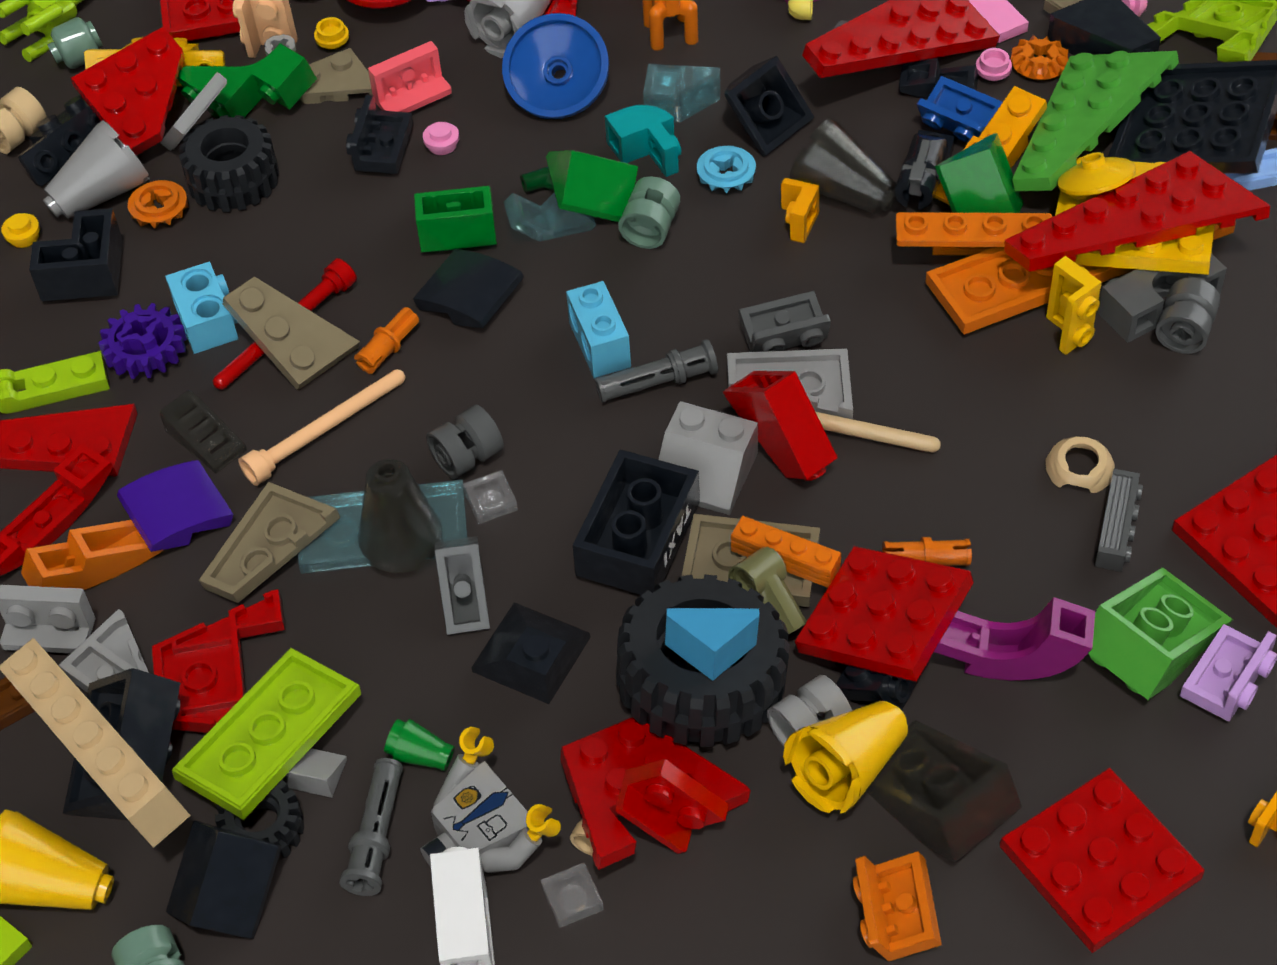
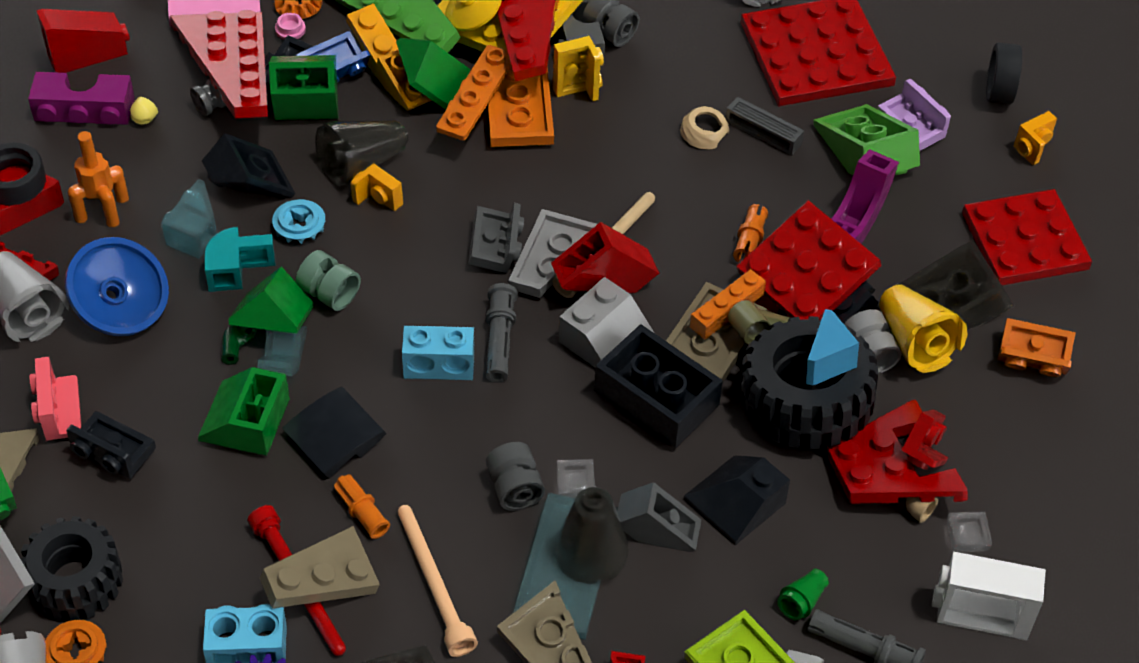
camera: 75 degrees left, 0 degrees up
(441, 138) = (133, 401): bright pink plate -> none
(482, 813) = (890, 566): light grey torso -> none
(892, 91) = (304, 87): none -> green slope
(918, 171) = (381, 100): black plate -> none

